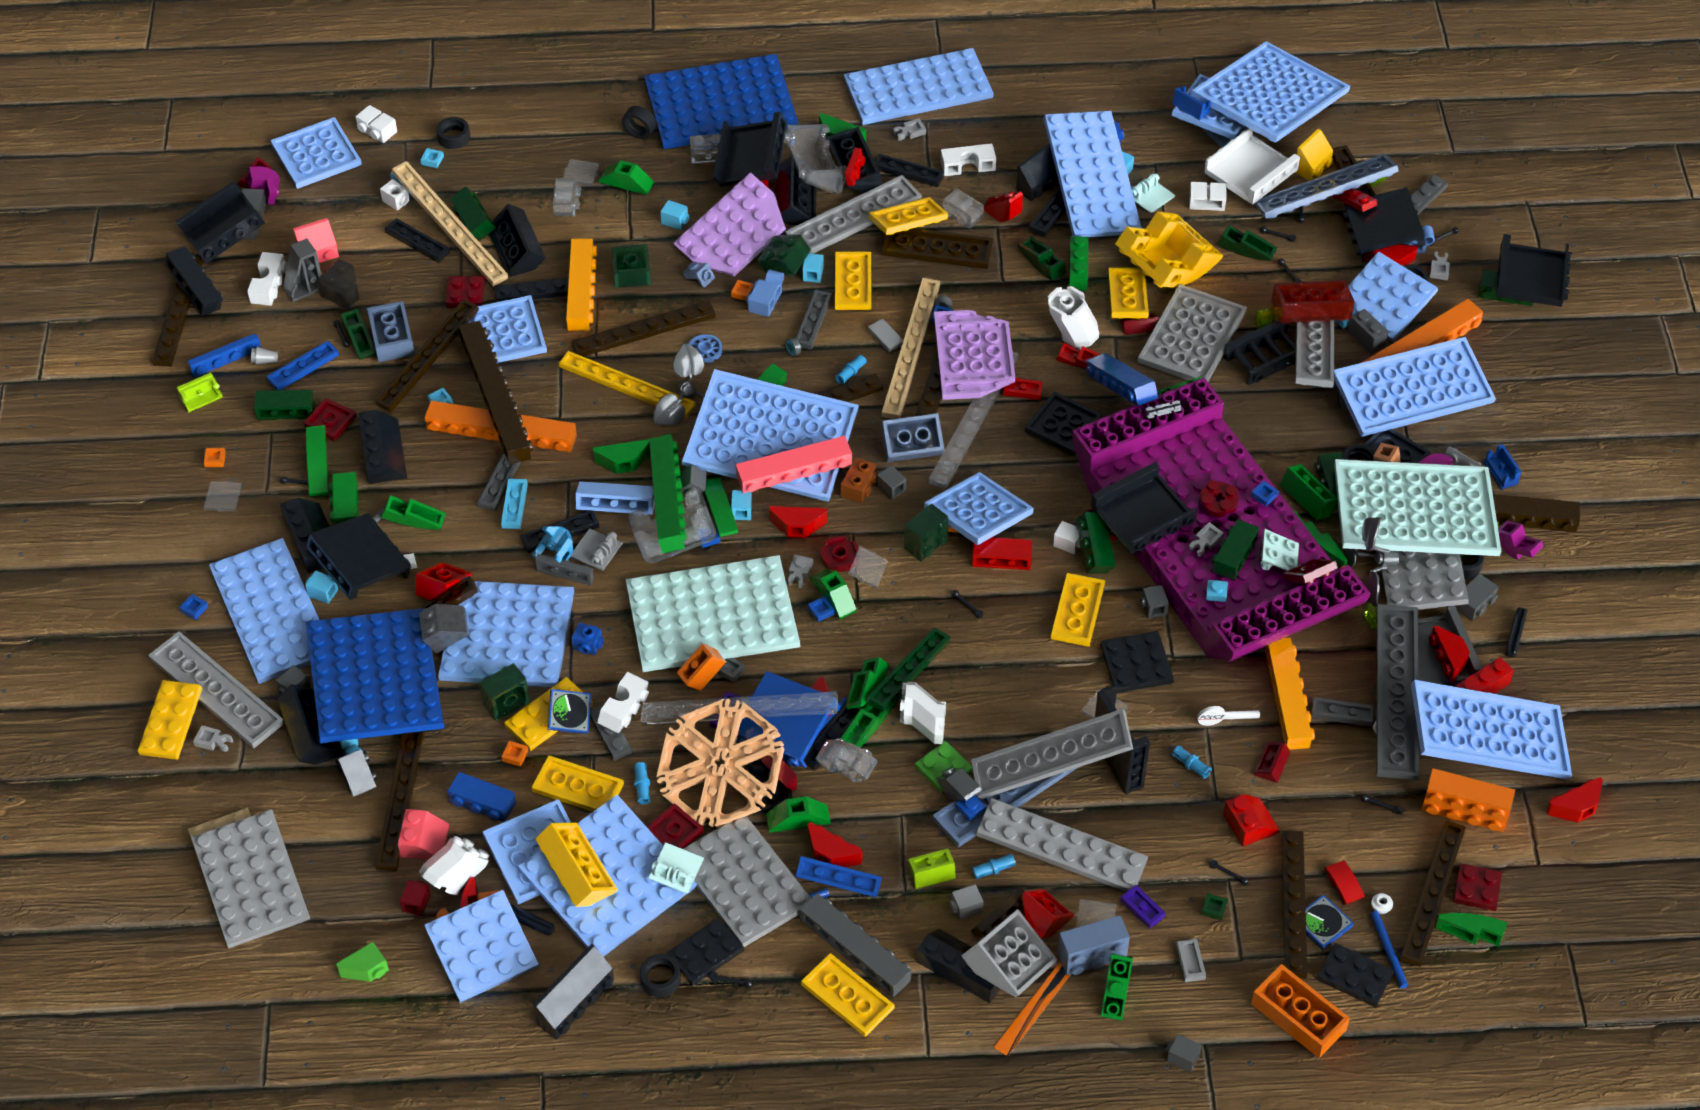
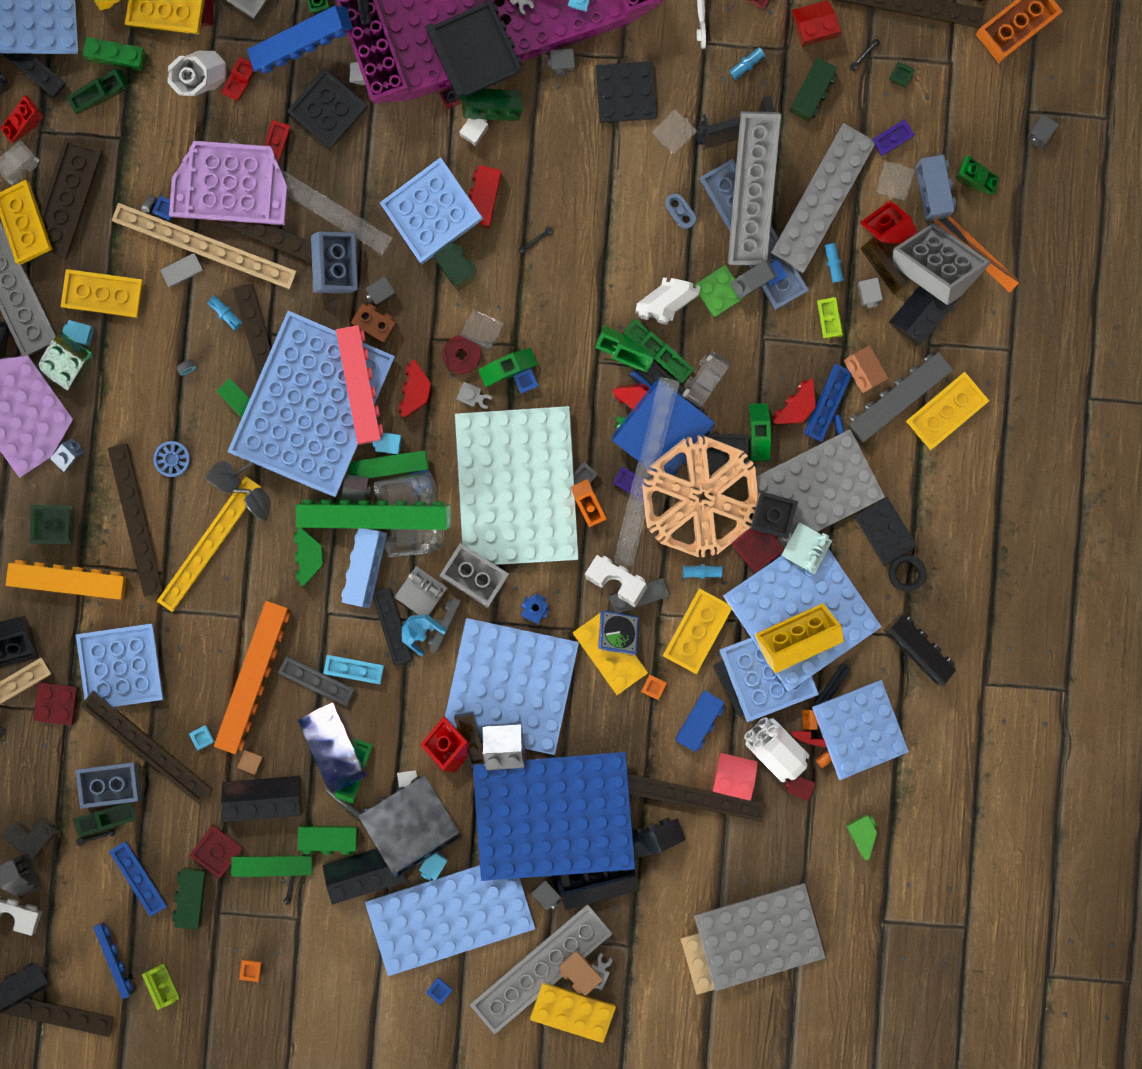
camera: 90 degrees left, 35 degrees up
(211, 714) = (579, 972): none -> medium nougat brick
(222, 496) = (298, 962): clear piece -> none
(262, 356) = (119, 919): light grey cone -> none
(418, 436) = (250, 762): none -> medium nougat tile
(434, 486) = (332, 747): none -> clear blue brick
(494, 392) = (216, 680): dark brown brick -> none
(504, 691) = (589, 692): clear green brick -> none
(536, 289) = (64, 632): black plate -> none
(614, 582) = (474, 575): none -> light grey slope
(707, 828) = (773, 515): none -> black brick
(714, 977) = (910, 526): black hinge -> none
(741, 290) = (99, 411): orange plate -> none
(765, 293) = (109, 388): medium blue hinge -> none
(786, 774) = (725, 437): dark red slope -> none
(813, 318) = (147, 342): dark grey tile -> none
(880, 905) = (865, 369): none -> nougat brick
(908, 669) = (613, 307): dark green plate -> none
(1019, 720) = (680, 211): none -> sand blue plate
(1078, 609) = (560, 136): yellow plate -> none
(1178, 824) = (813, 89): none -> dark green brick
(1190, 960) = (949, 106): light grey tile -> none

